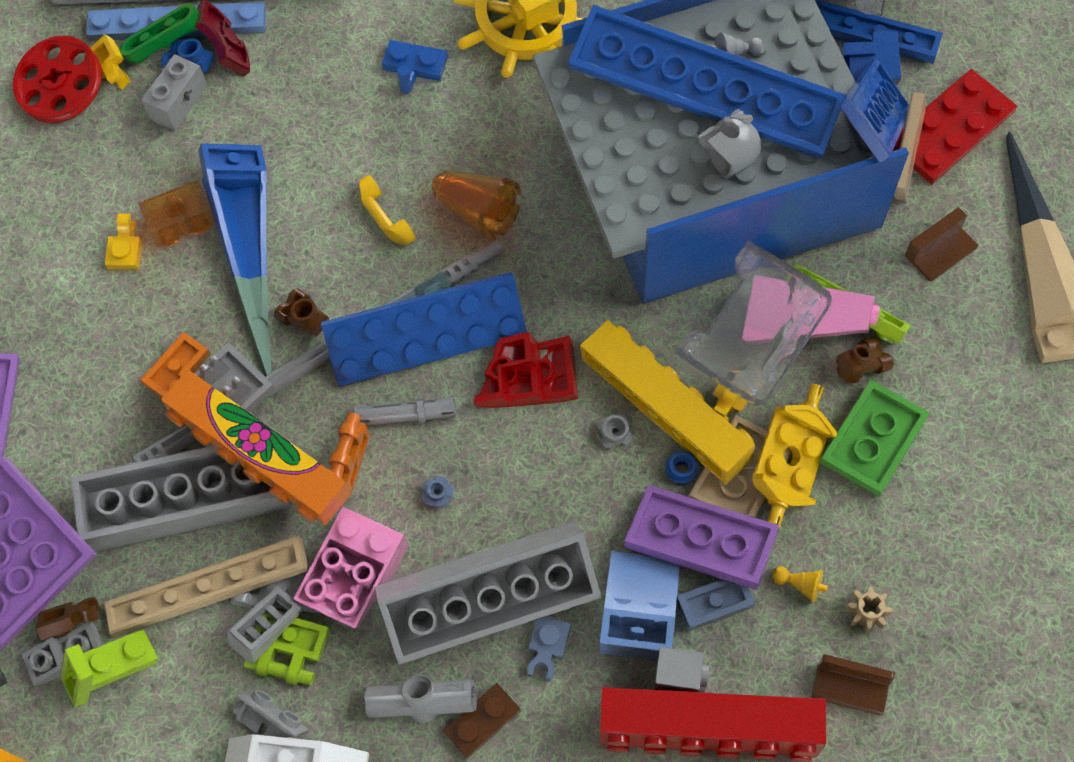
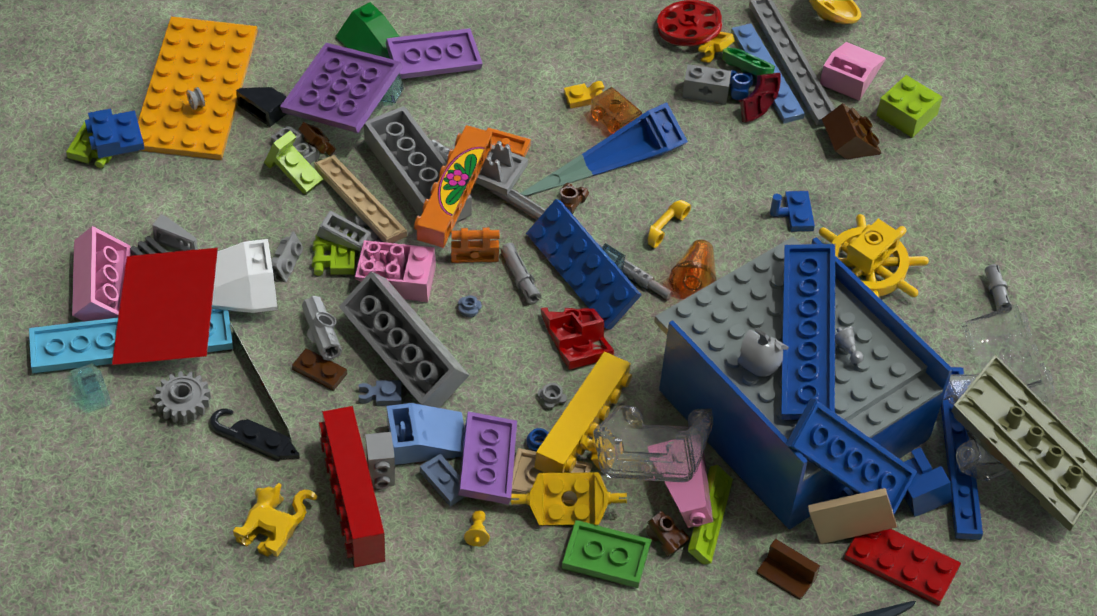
camera: 65 degrees right, 15 degrees down
(852, 684) = (409, 574): reddish brown panel -> none
(870, 618) = (470, 572): tan gear -> none

